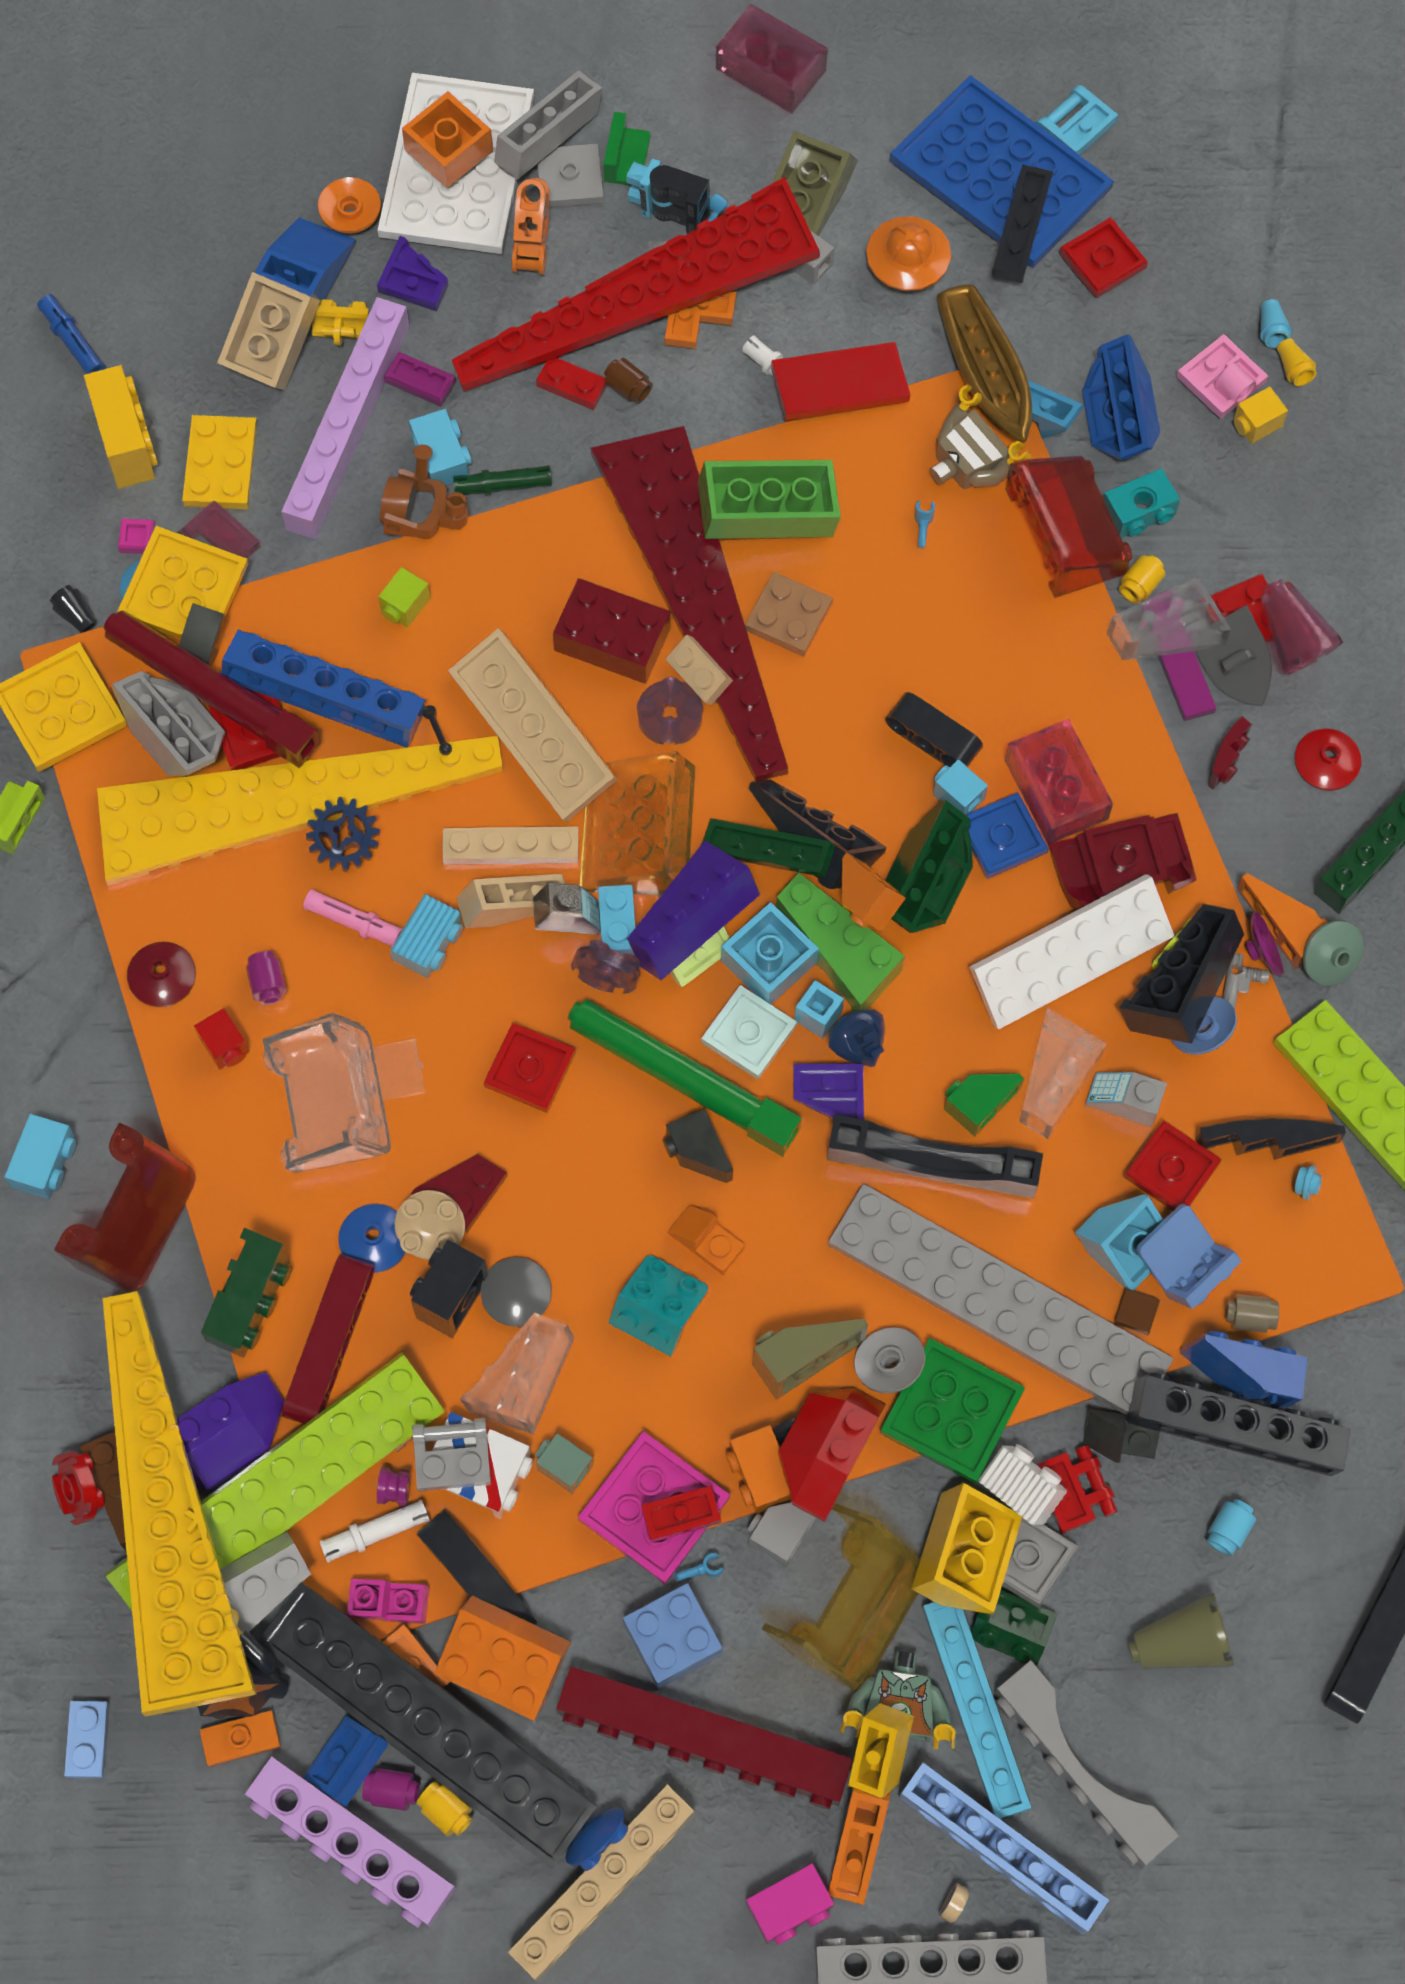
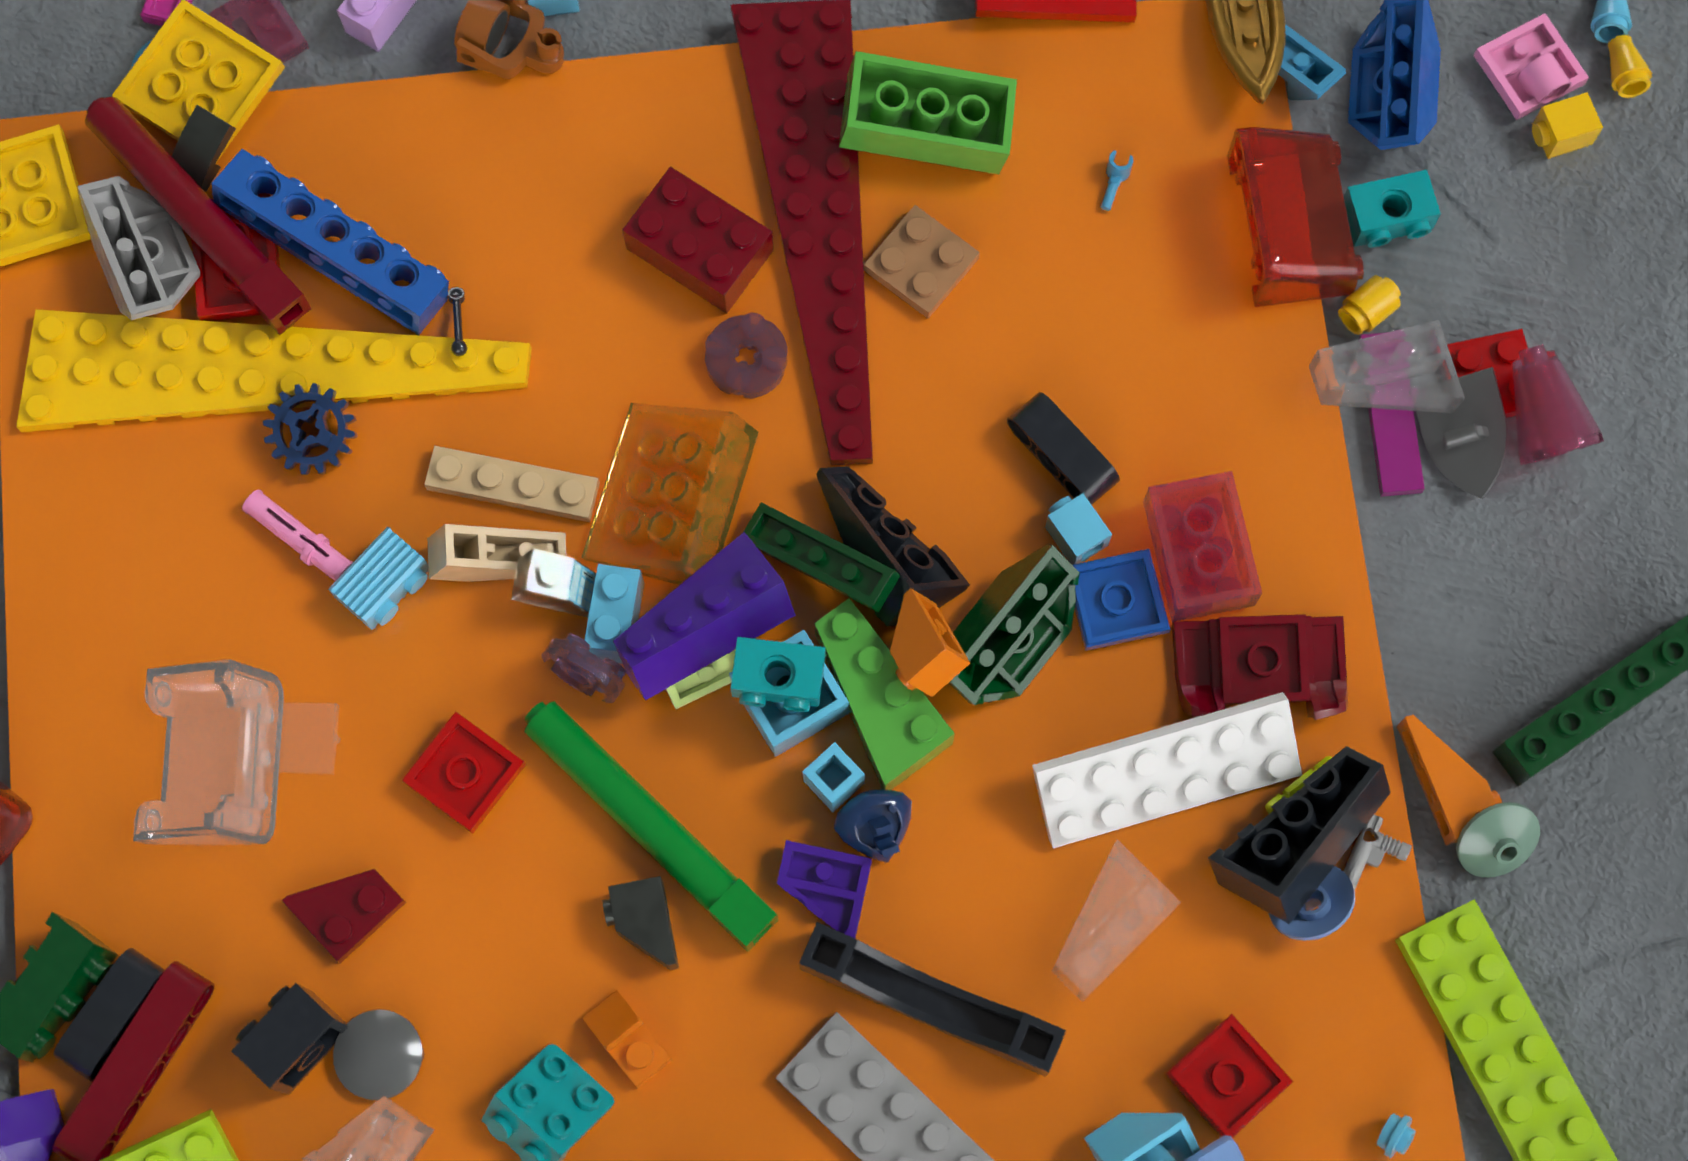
camera: 15 degrees right, 5 degrees up
(72, 607) = (67, 79): black cone -> none
(163, 988) = (70, 567): dark red dish -> none
(222, 1039) = (102, 656): red brick -> none
(265, 977) = (174, 590): magenta brick -> none
(298, 1305) = (107, 1013): none -> black beam
(382, 1252) = (246, 948): blue dish -> none
(404, 597) = (458, 147): lime brick -> none
(428, 1222) = (292, 947): tan dish -> none
(502, 480) = (611, 23): dark green pin -> none
(532, 725) = (573, 339): tan plate -> none
(699, 669) = (792, 310): tan plate -> none
(749, 1032) = (743, 785): light aqua plate -> none
(774, 922) = (758, 656): none -> teal brick
(971, 449) = (1195, 99): dark tan torso -> none
(980, 1098) = (1008, 934): green slope -> none
(1127, 1095) = (1192, 971): light grey slope -> none
(1228, 753) = (1420, 560): dark red slope -> none
(1263, 945) = (1413, 812): magenta dish -> none
(1283, 1136) = (1376, 1067): black slope -> none
(1327, 772) = (1537, 596): red dish -> none

